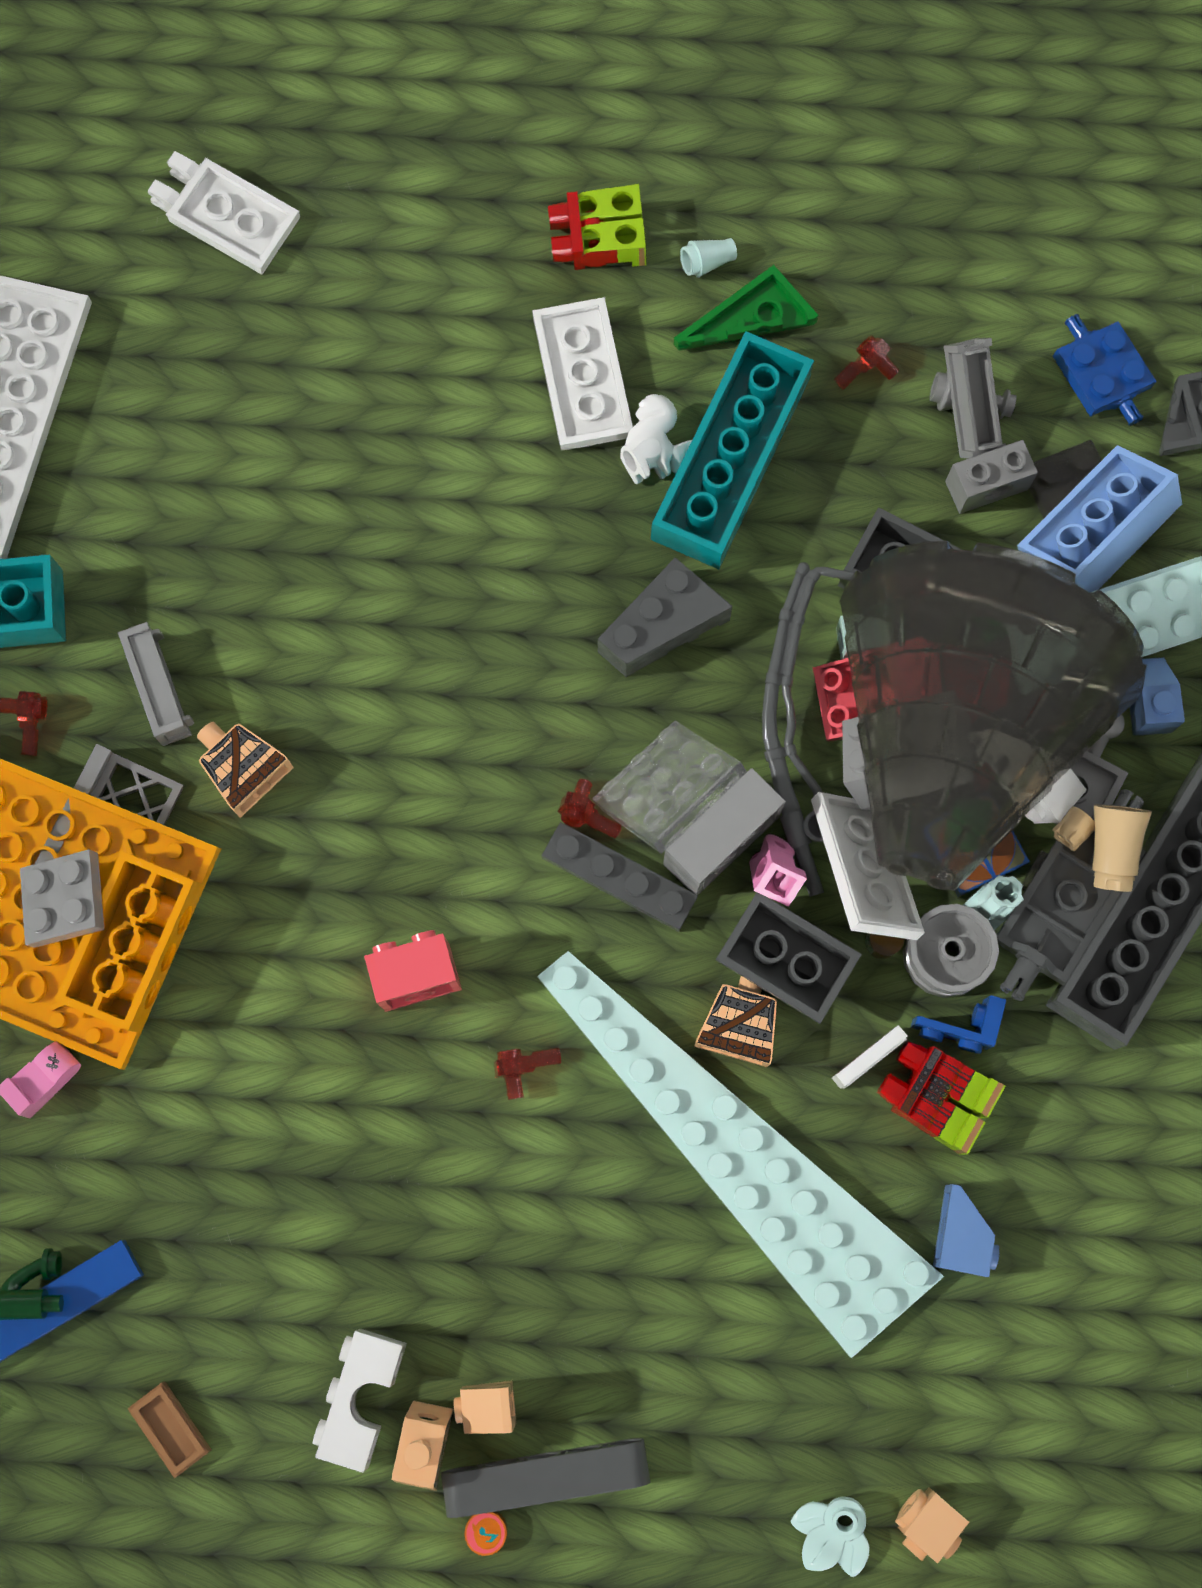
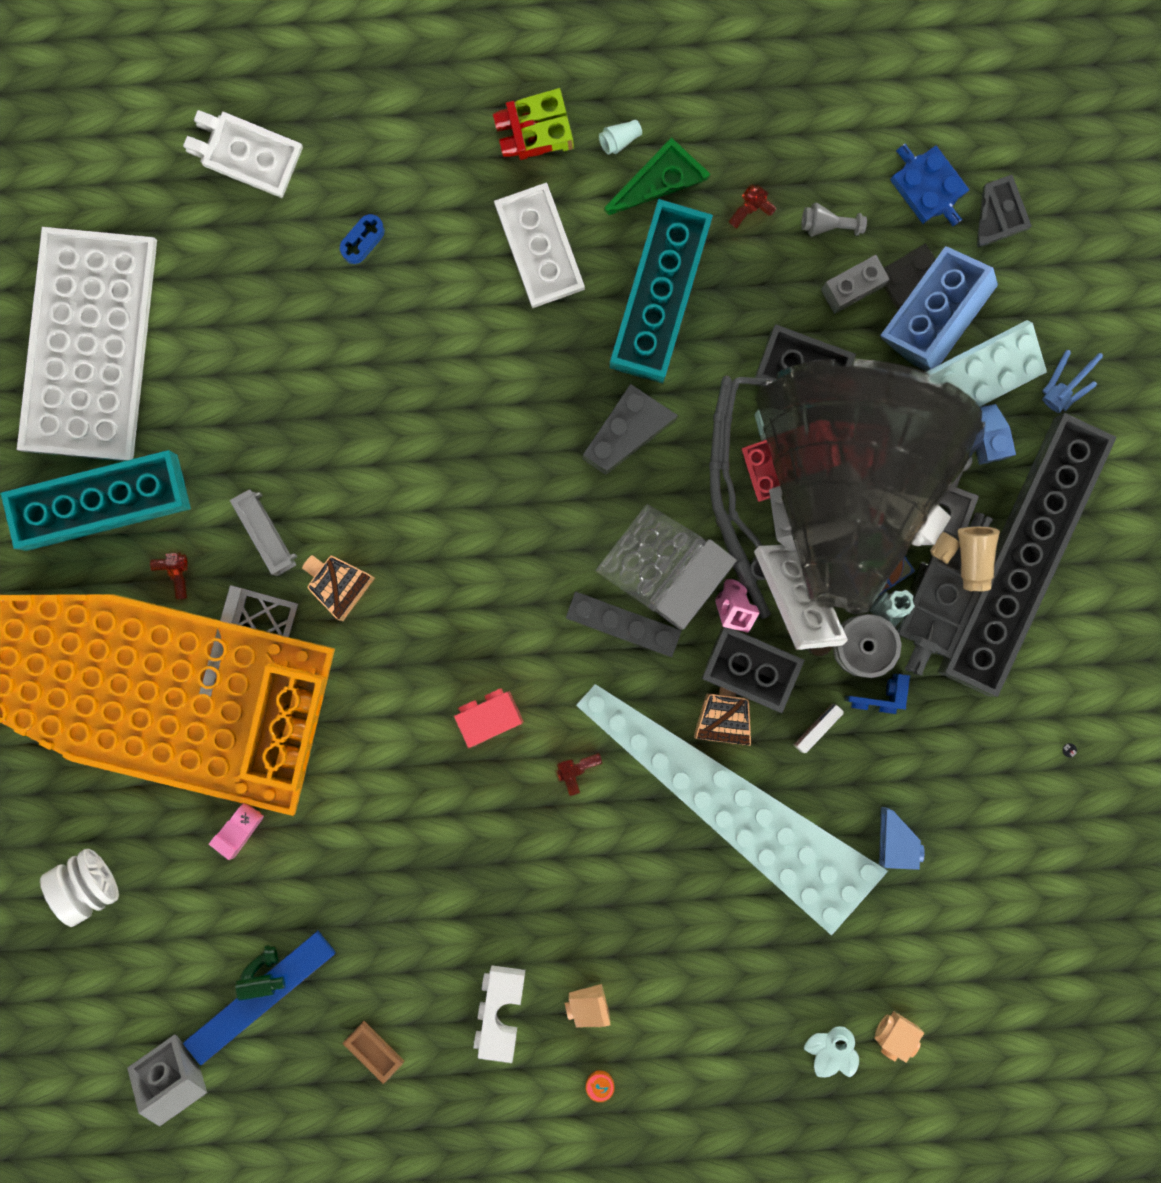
camera: 15 degrees left, 10 degrees up
(61, 898) = (229, 705): light grey plate -> none
(353, 334) = (357, 234): none -> blue beam
(422, 1445) = (548, 1038): light nougat torso -> none
(545, 1477) = (634, 1045): dark grey beam -> none
(579, 810) = (586, 580): clear red piece -> none
(647, 440) = (597, 295): white animal -> none
(929, 1089) = (862, 744): hips -> none
(973, 396) = (835, 225): light grey container -> none

